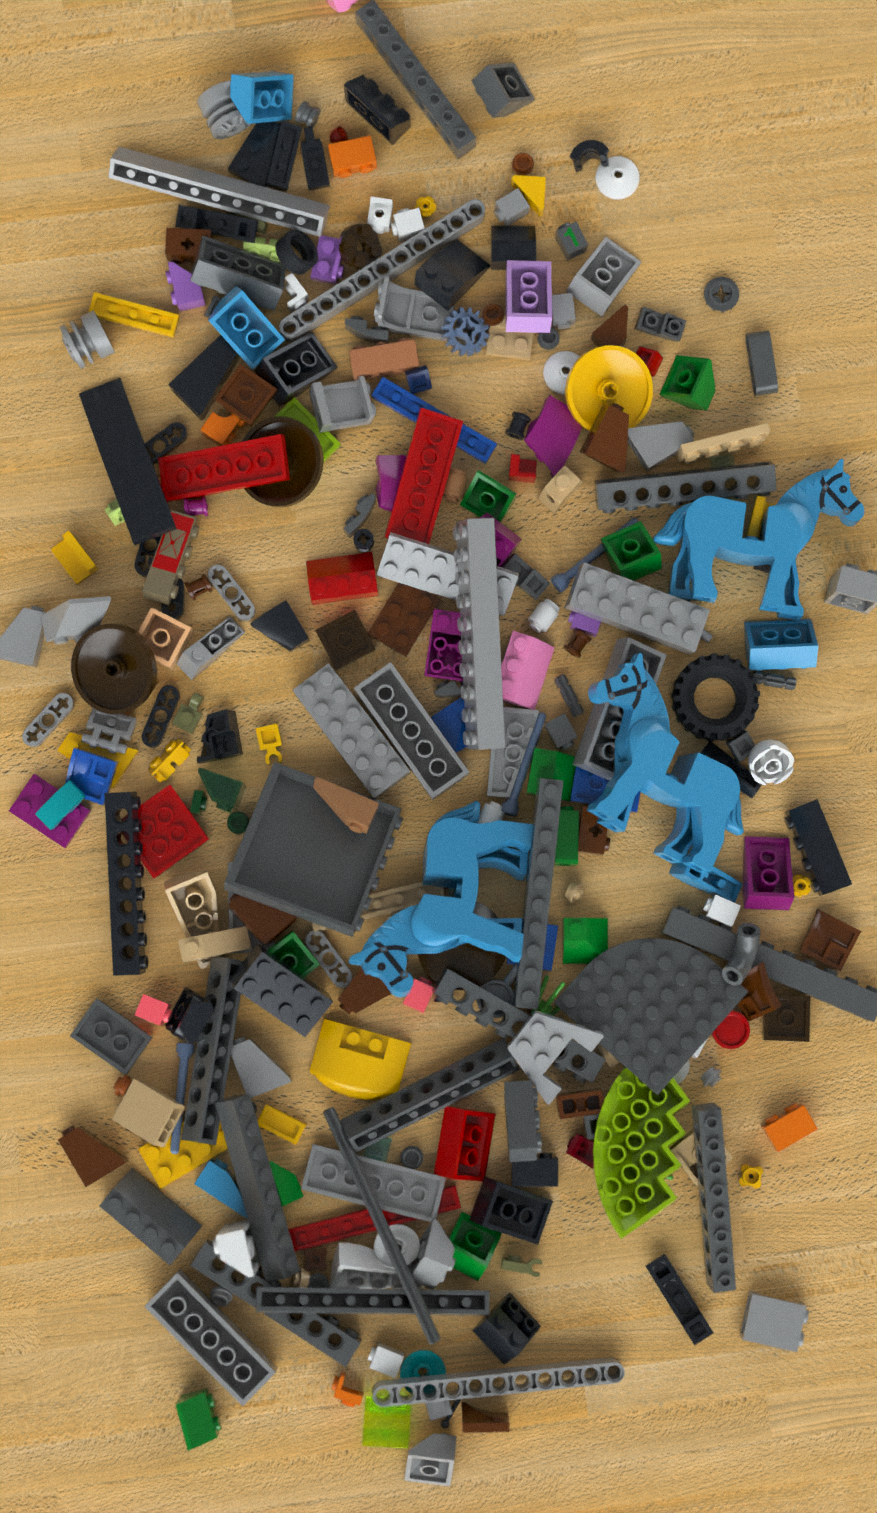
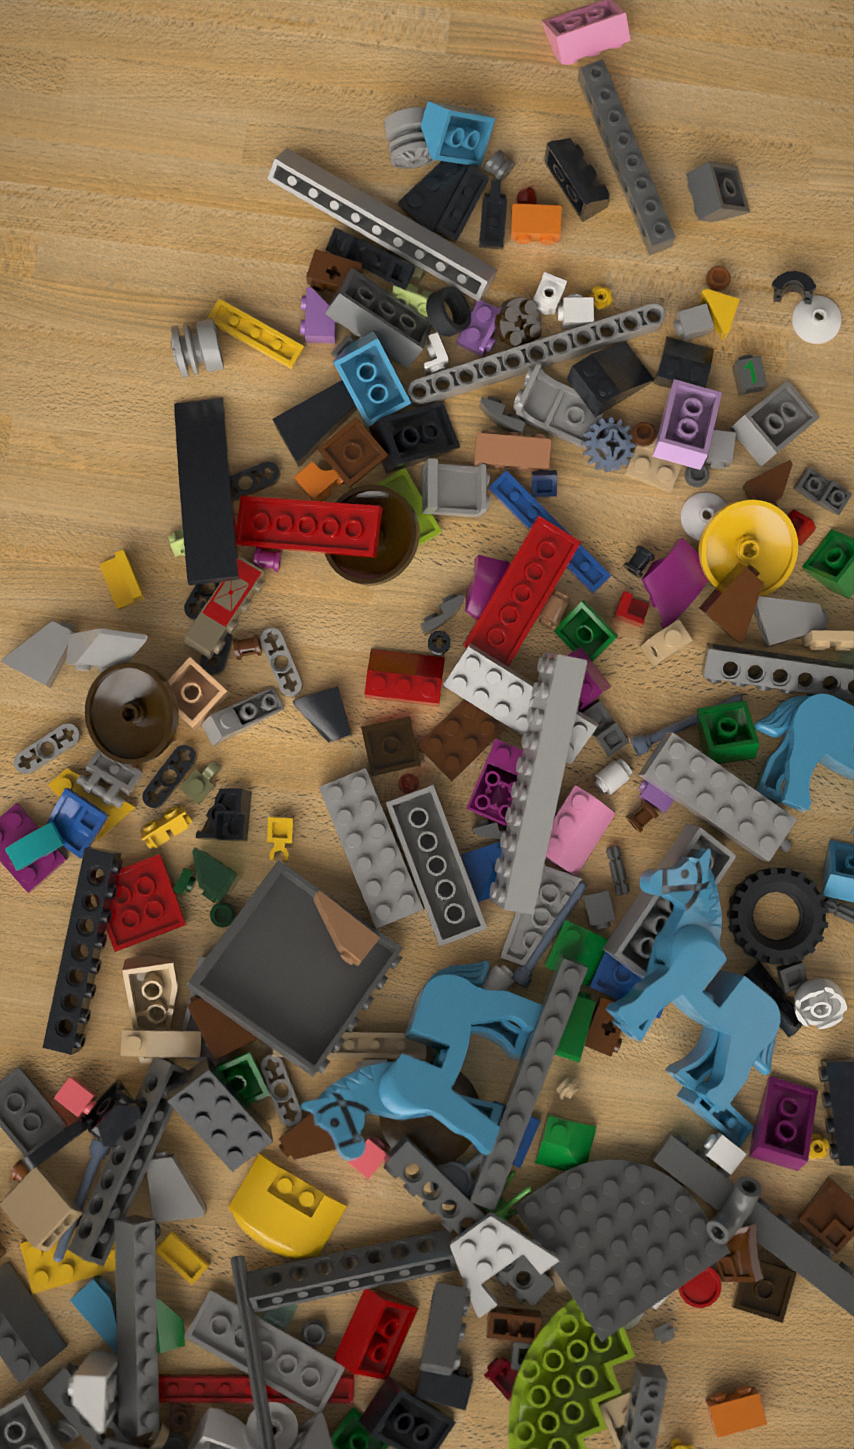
camera: 15 degrees right, 0 degrees up
(146, 1054) = (55, 1144): none -> black beam
(365, 670) = (404, 785): none -> clear red hinge

